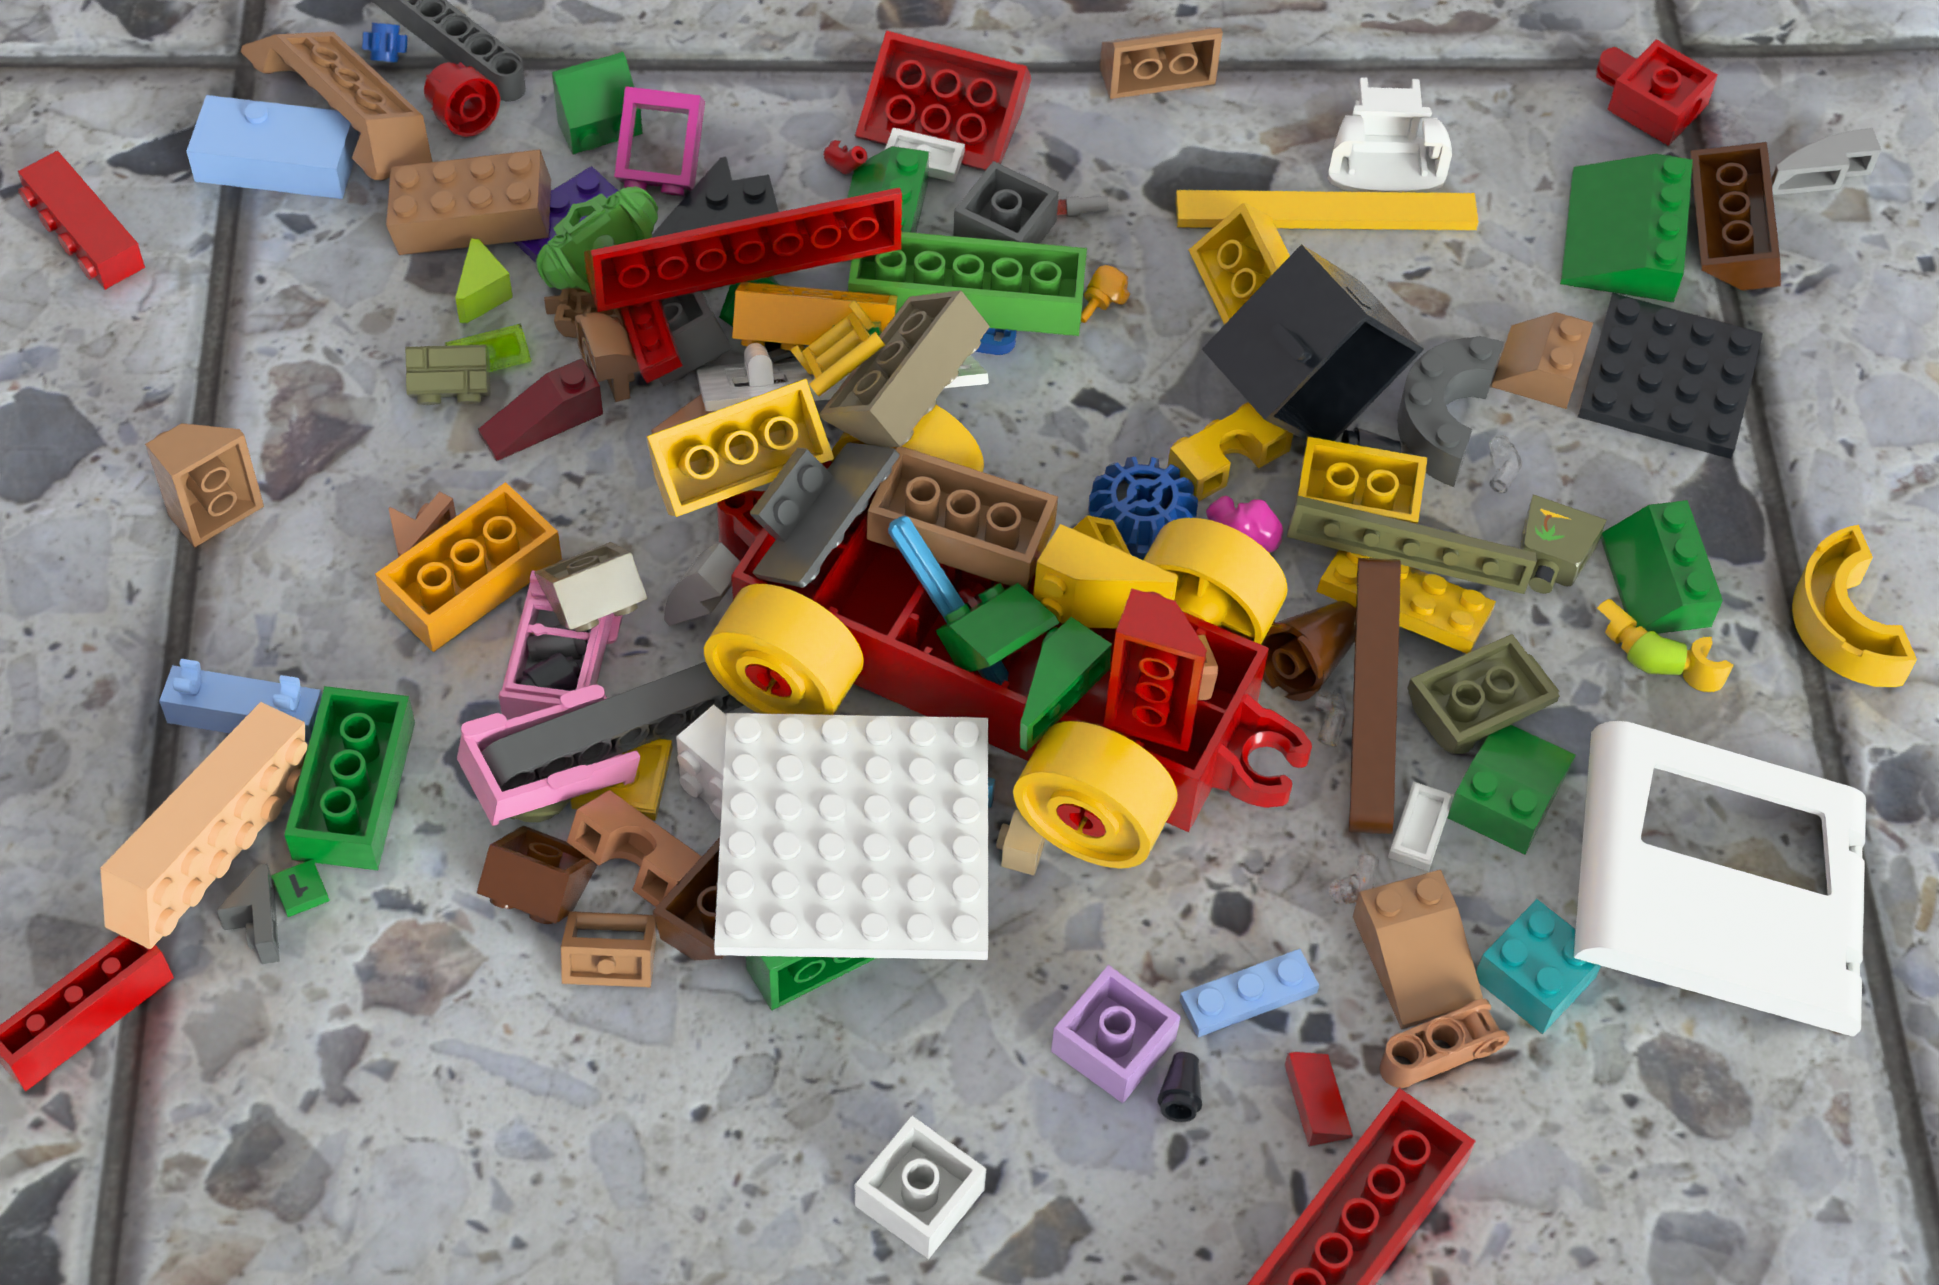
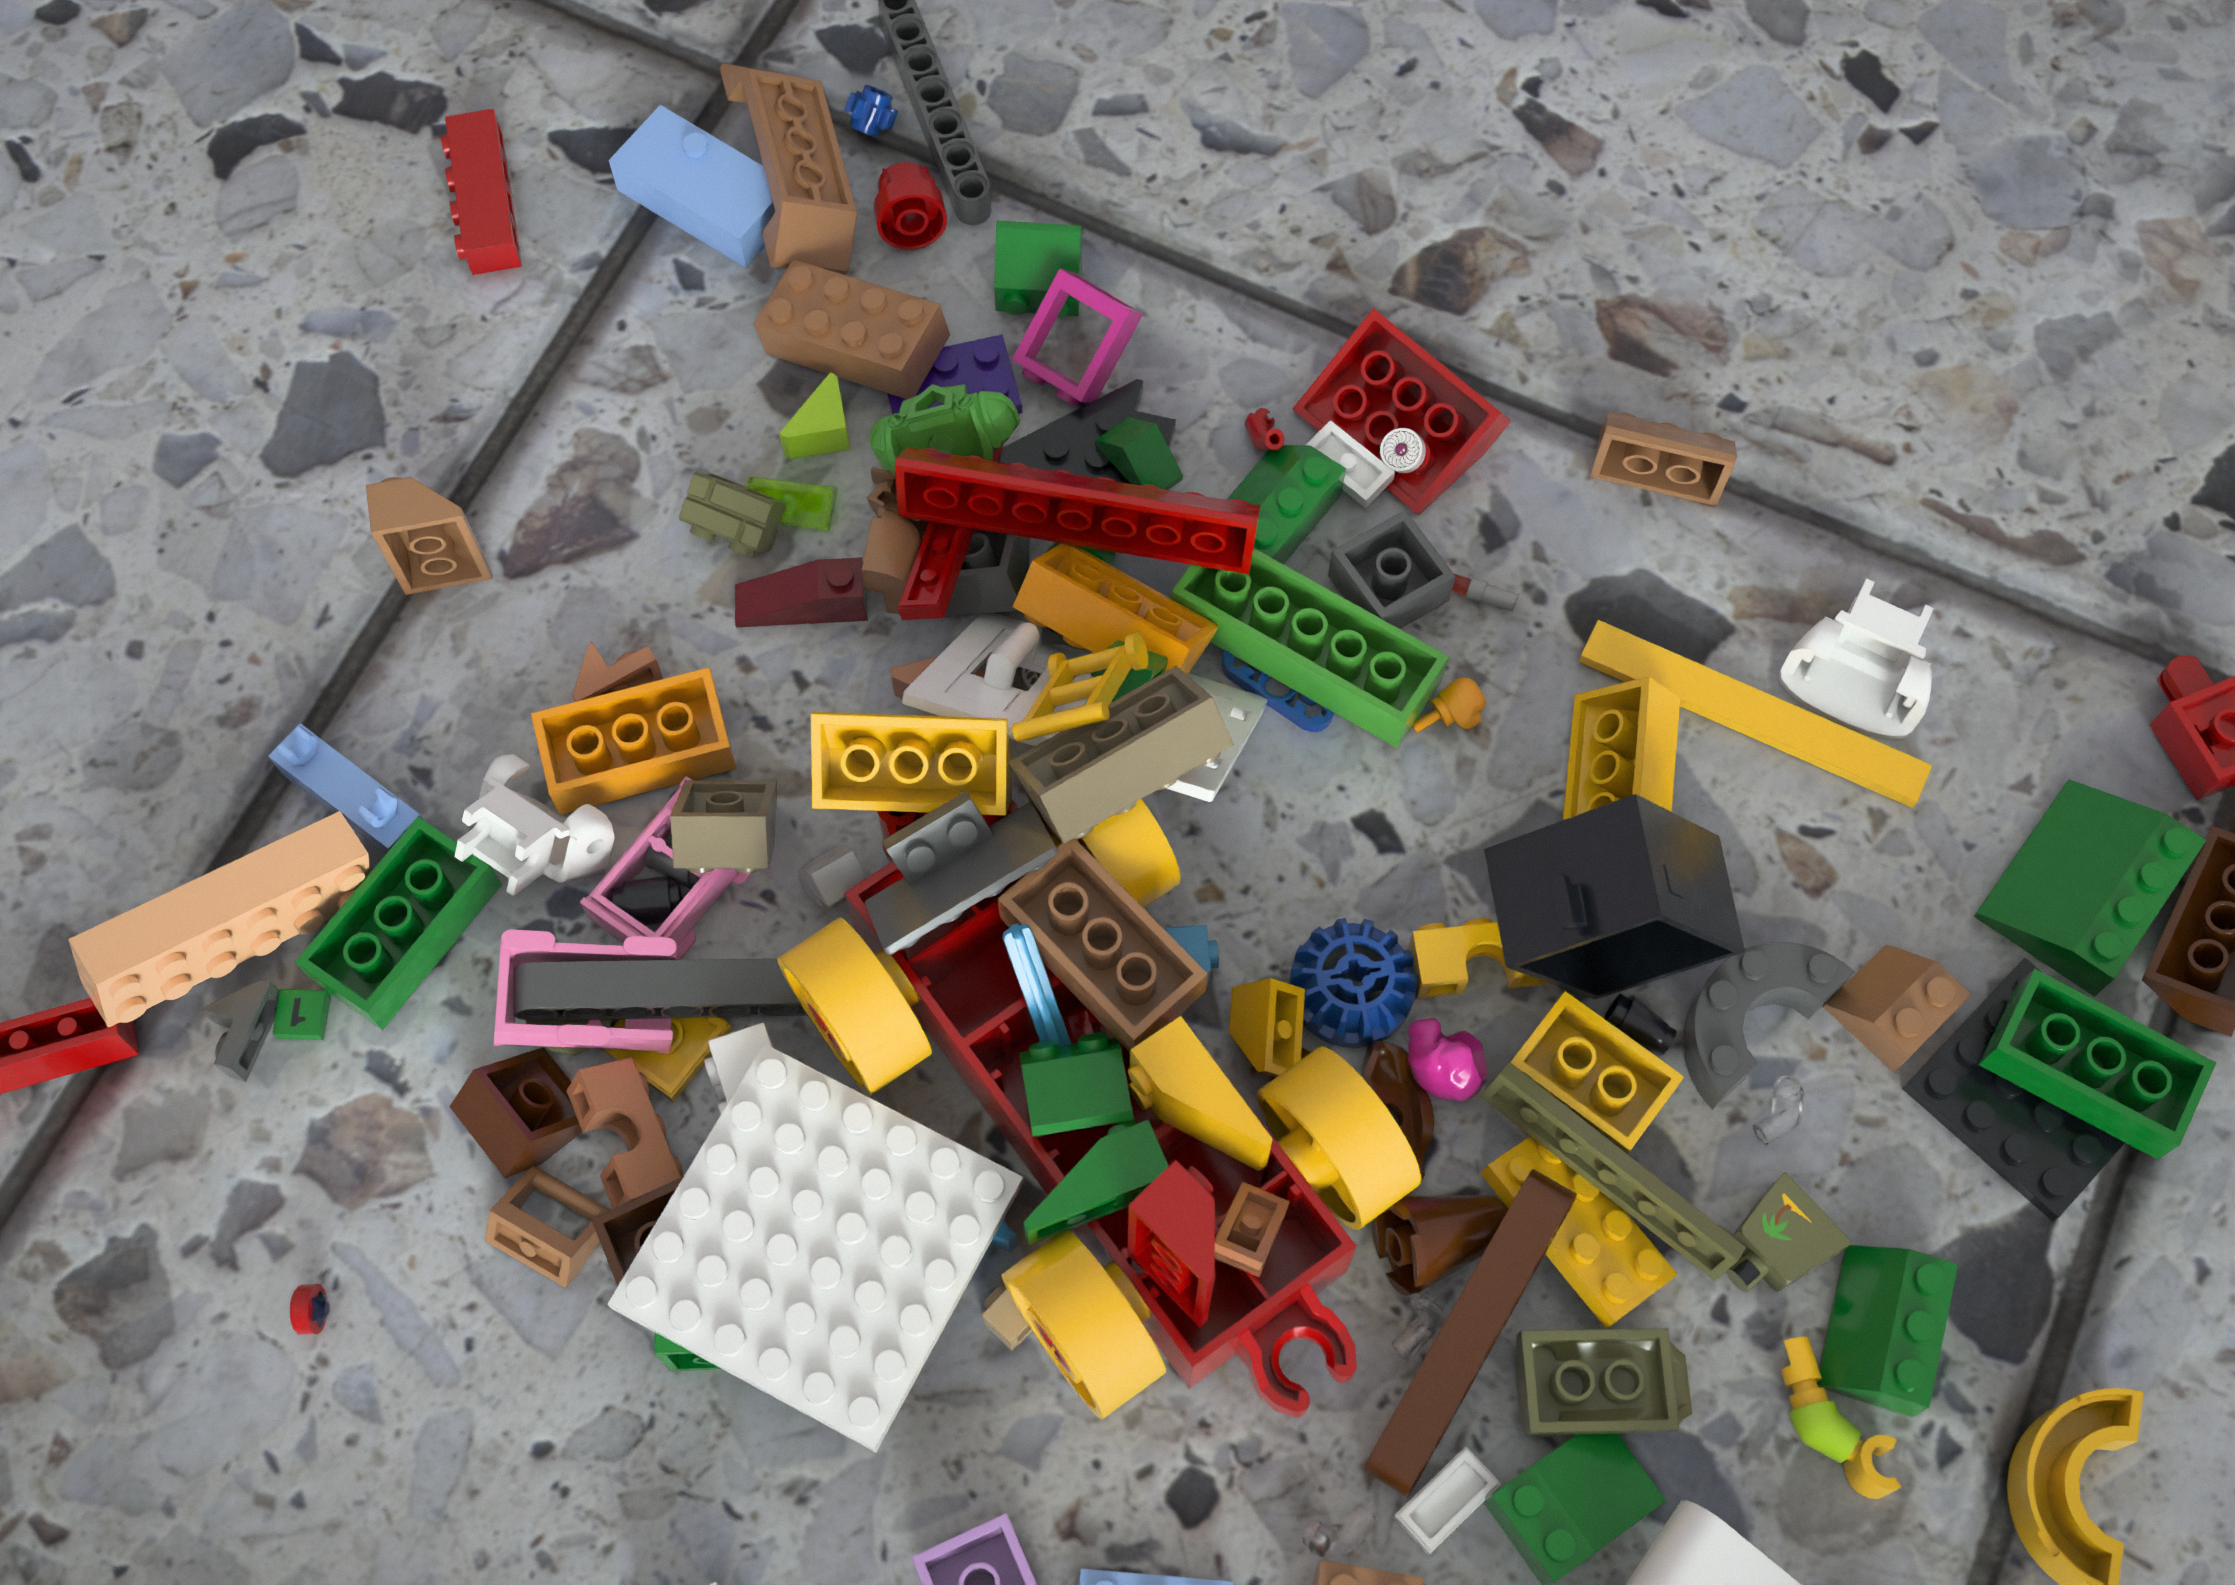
camera: 30 degrees right, 10 degrees up
(426, 660) = (530, 838): none -> white piece
(447, 1092) = (309, 1309): none -> red tile
(755, 197) = (1140, 453): none -> green slope
(963, 126) = (1402, 450): none -> white tile
(1704, 330) = (2098, 1064): none -> green brick

